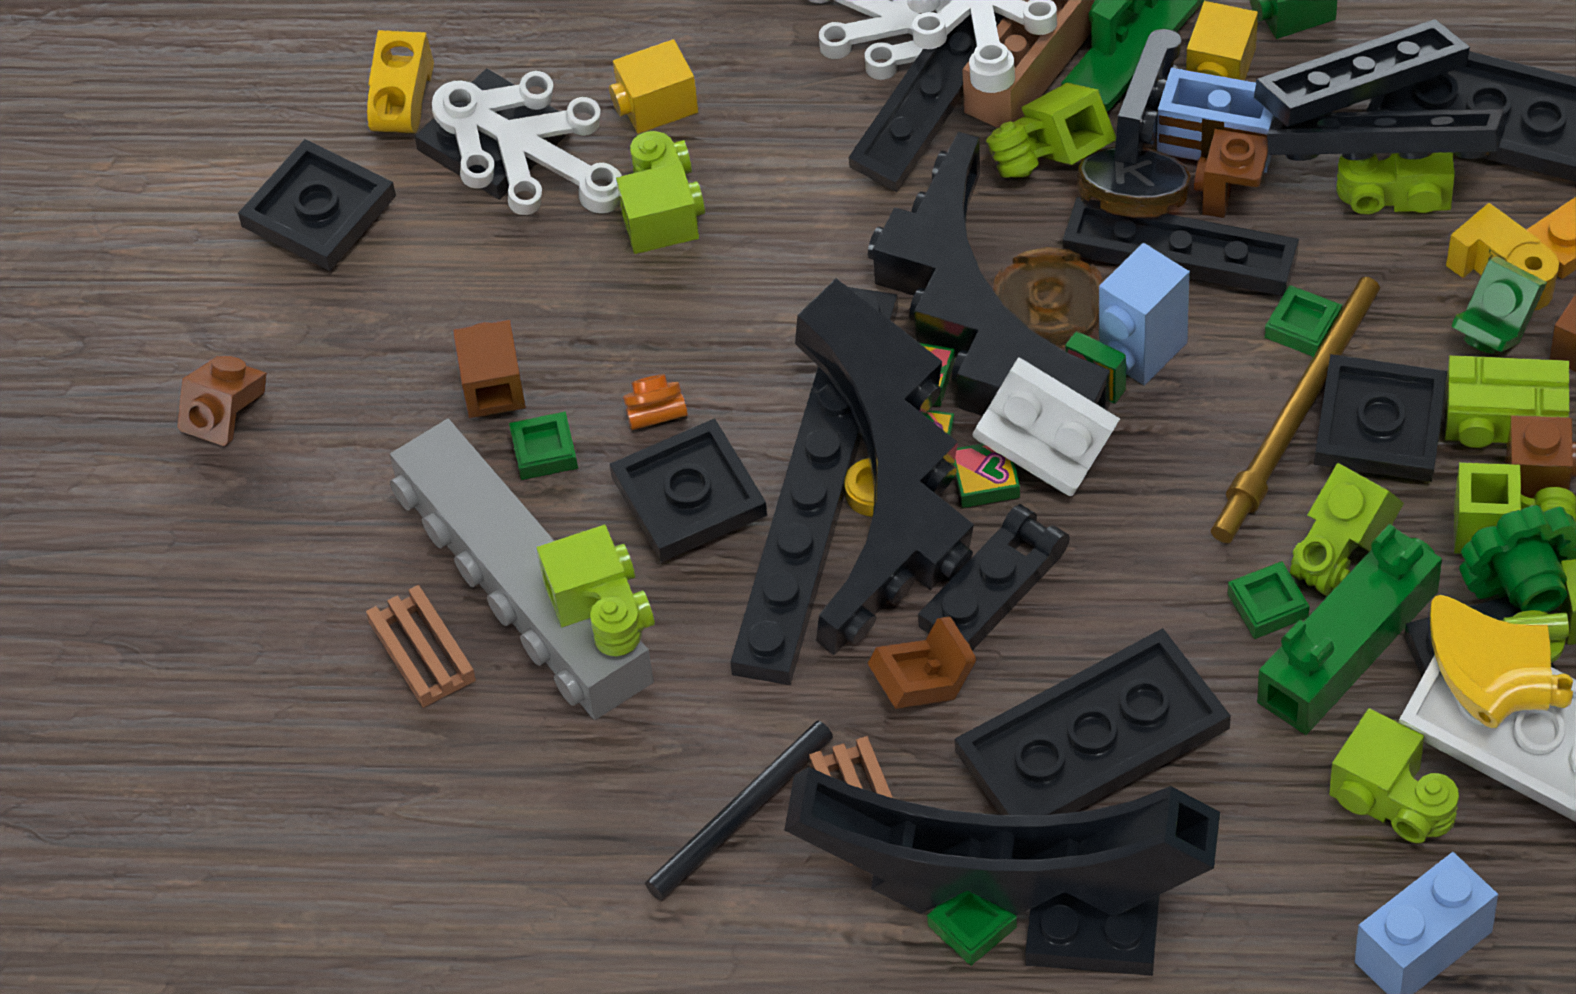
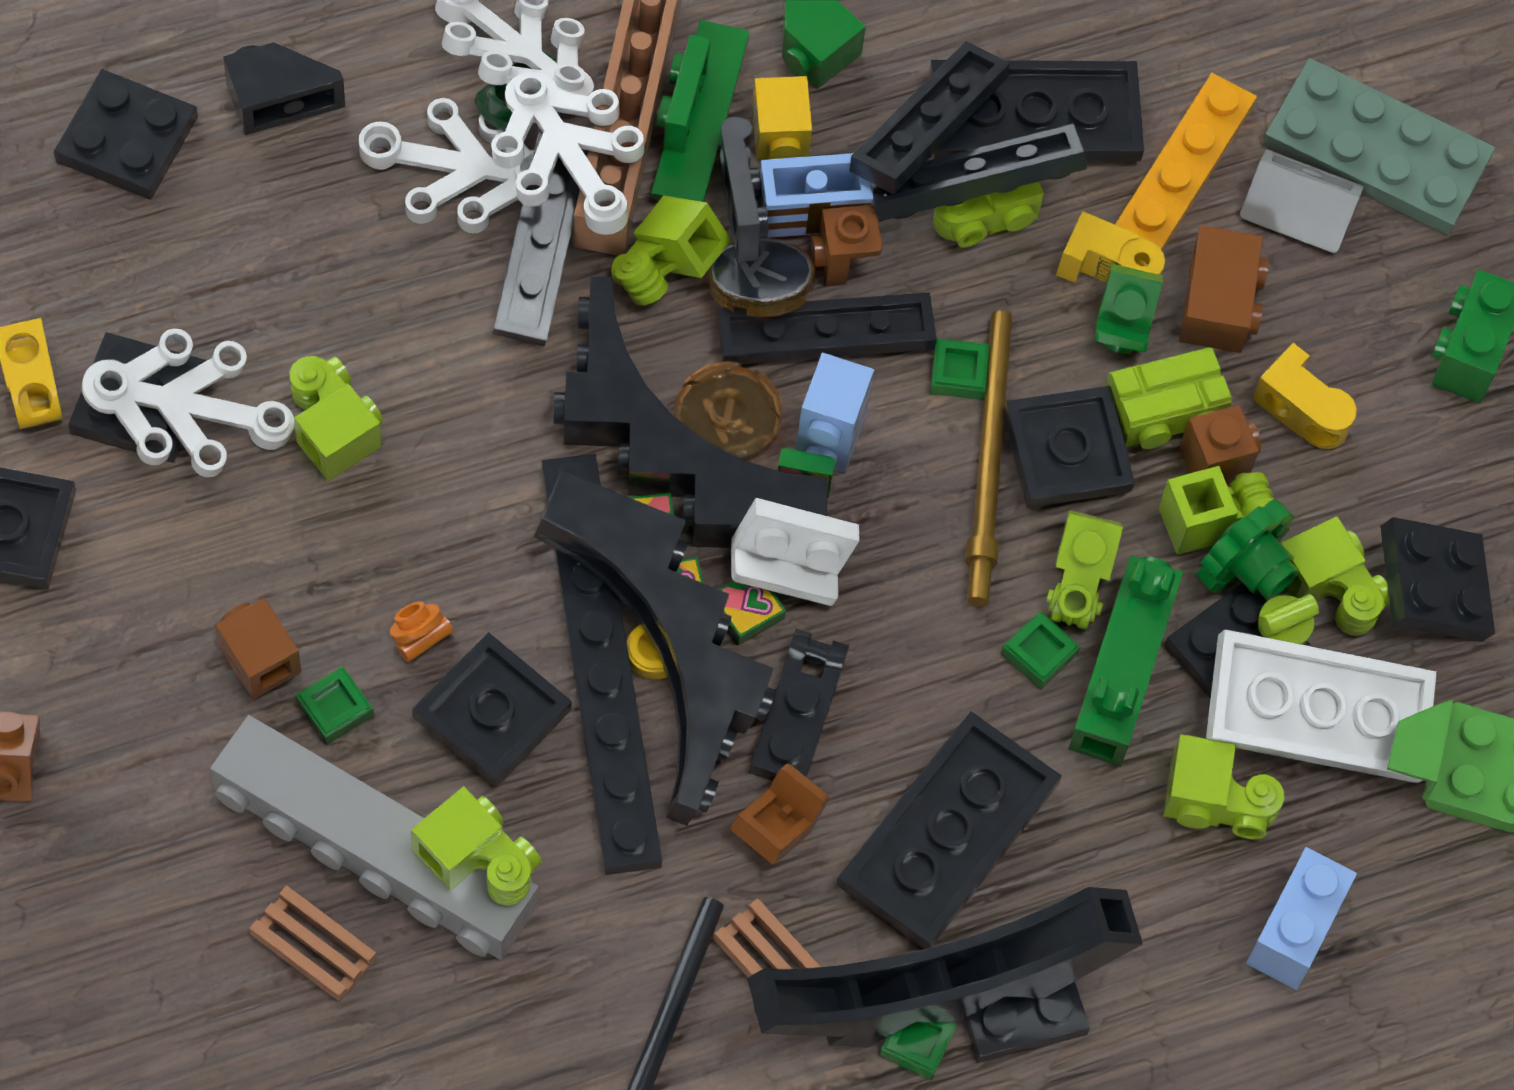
camera: 35 degrees left, 10 degrees up
(654, 87) = (278, 306): yellow brick -> none
(1494, 663) = (1273, 662): yellow arm -> none

